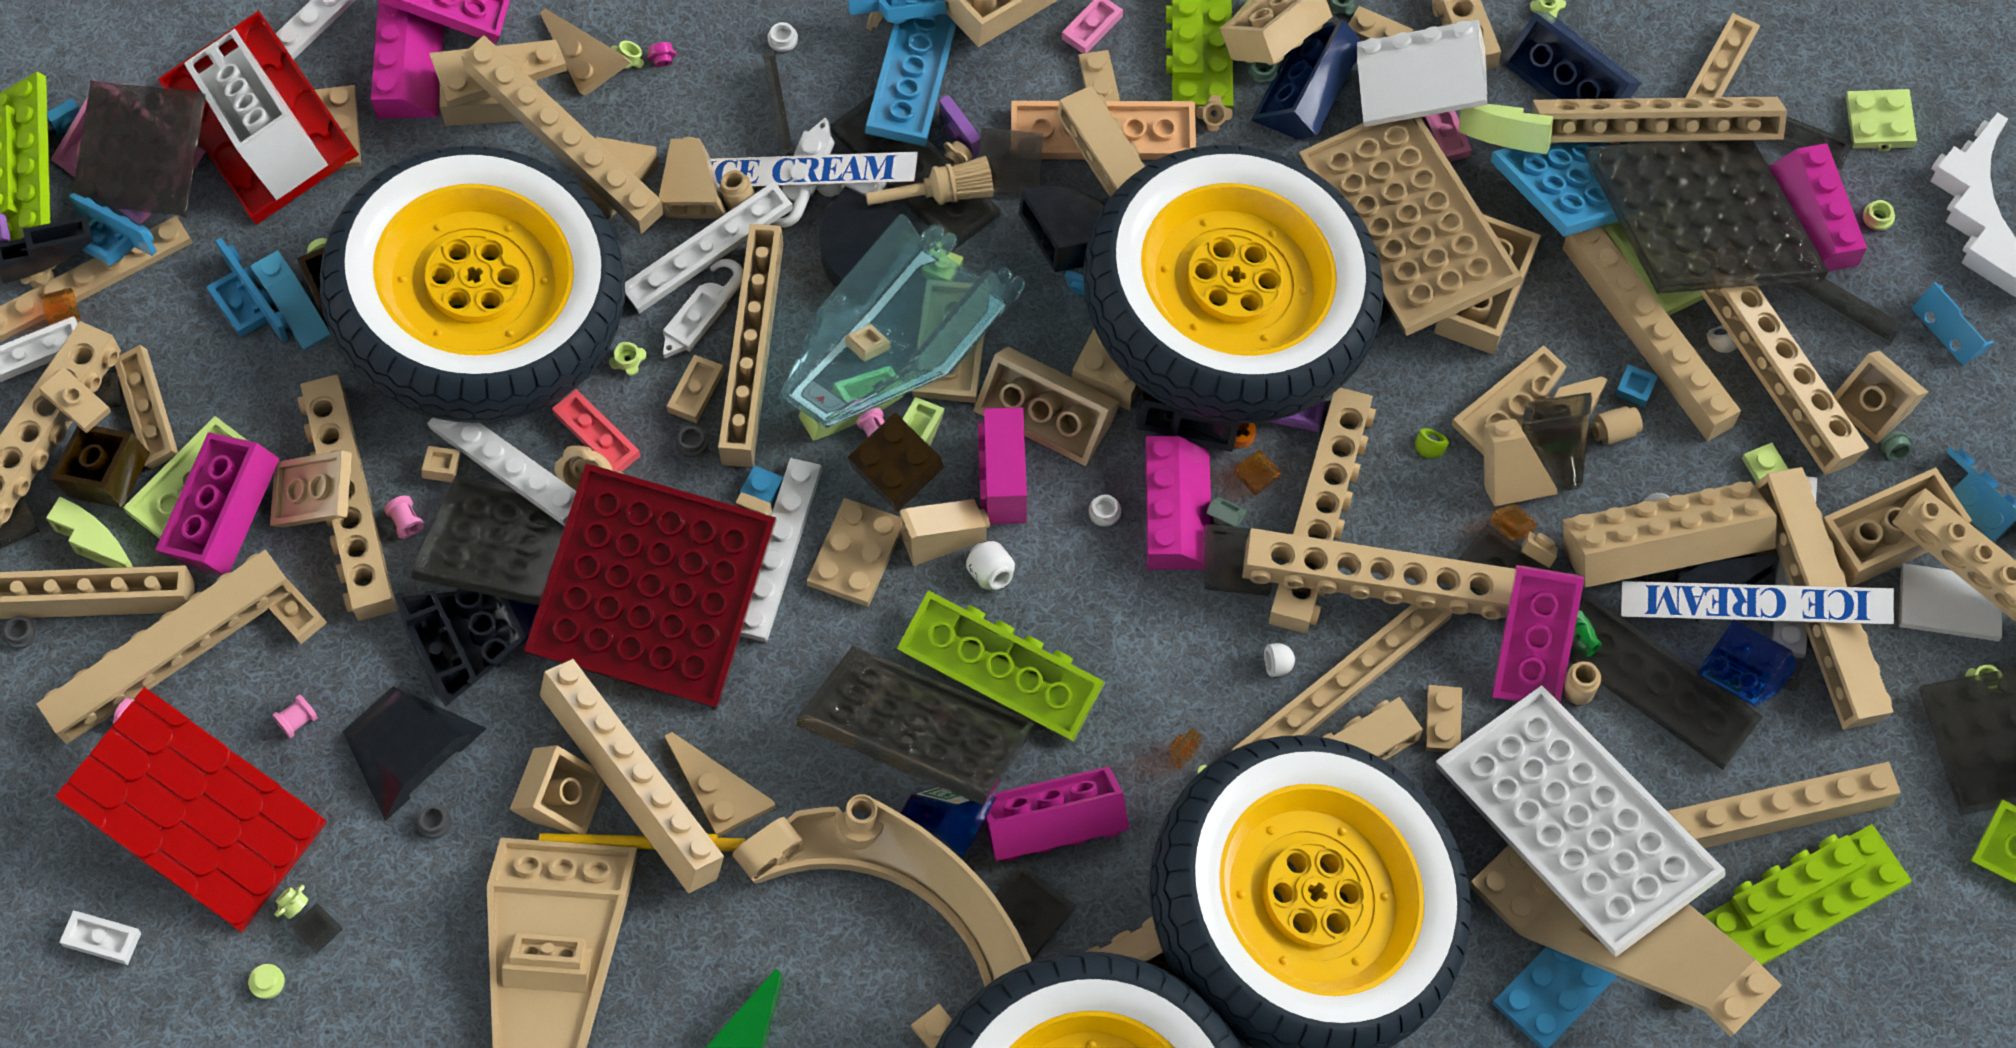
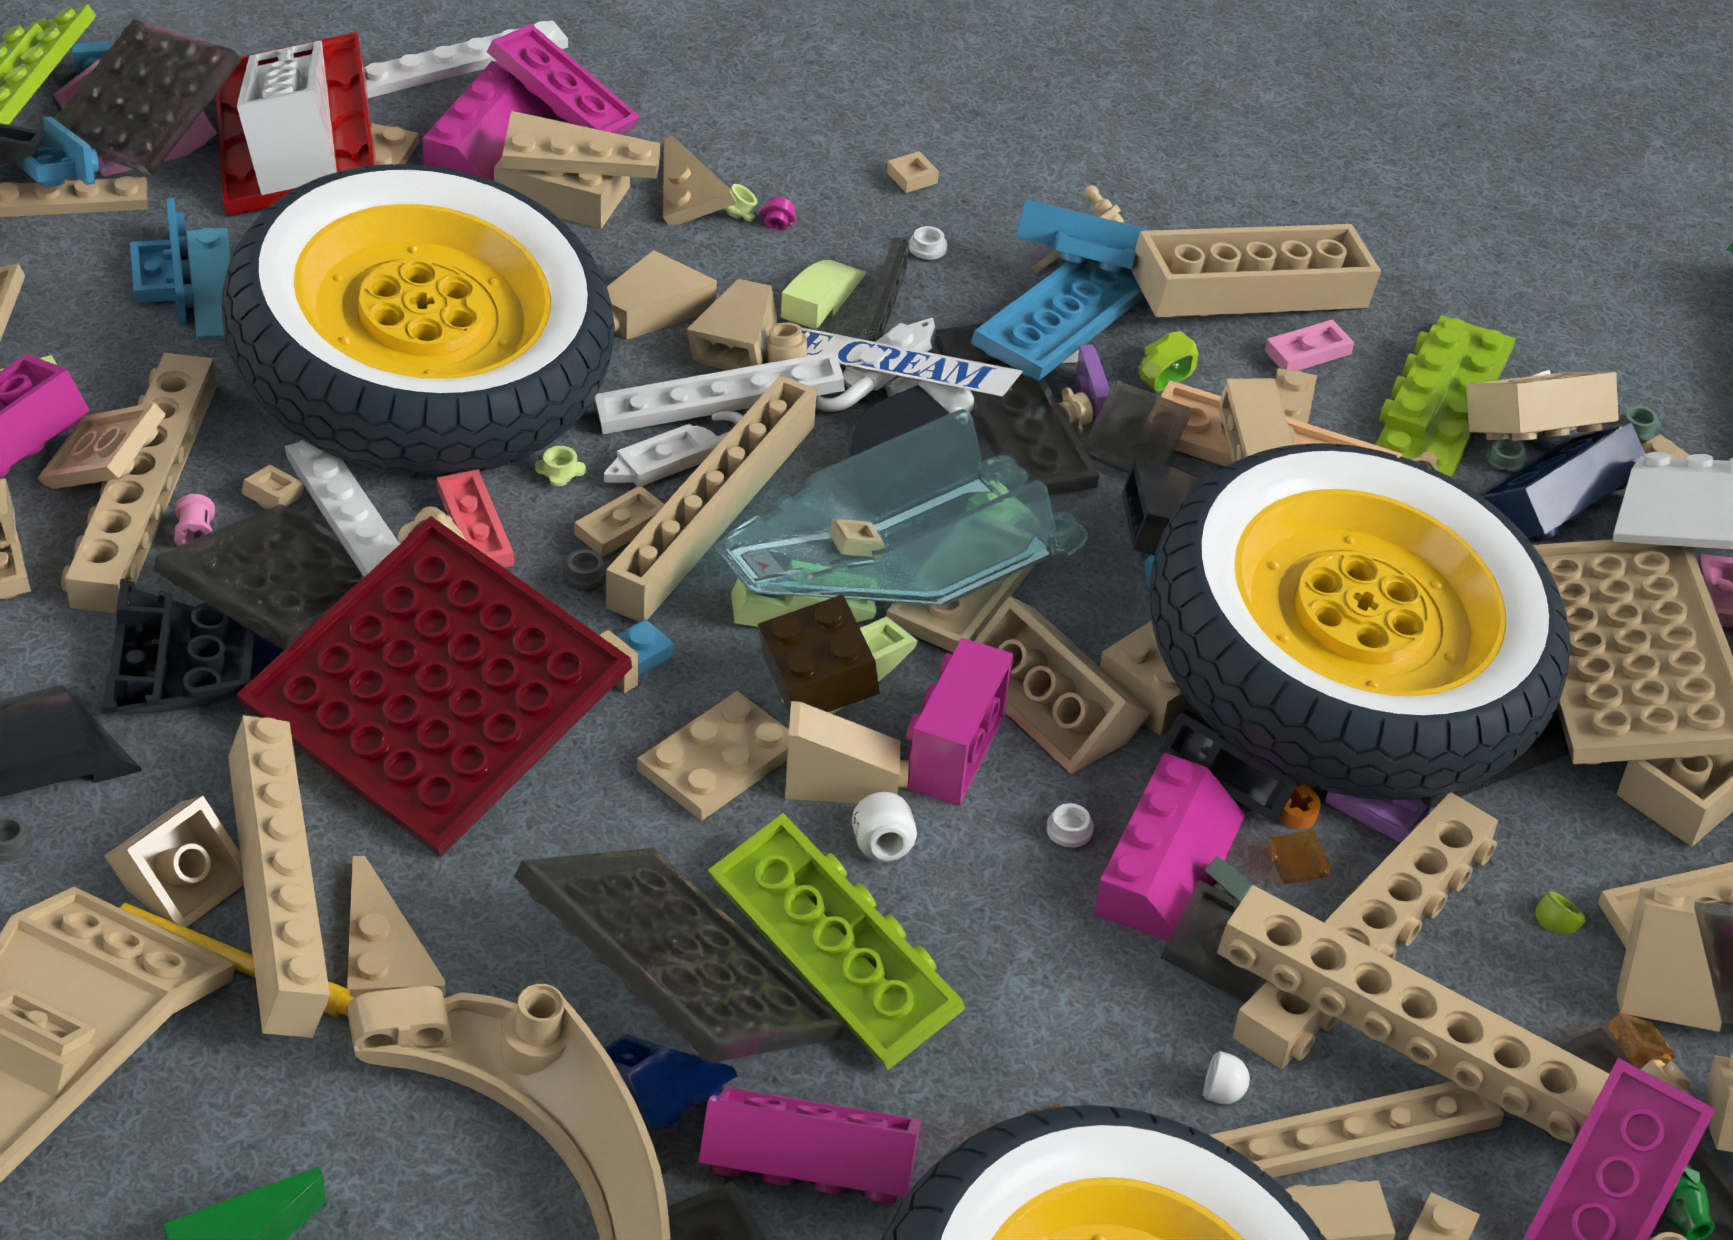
camera: 20 degrees right, 20 degrees down
(562, 134) = (612, 223): tan brick -> none
(729, 118) = (819, 292): none -> yellowish green slope
(791, 515) = (622, 717): white plate -> none
(944, 184) = (1040, 419): tan piece -> none
(1001, 81) = (1167, 359): none -> lime rock

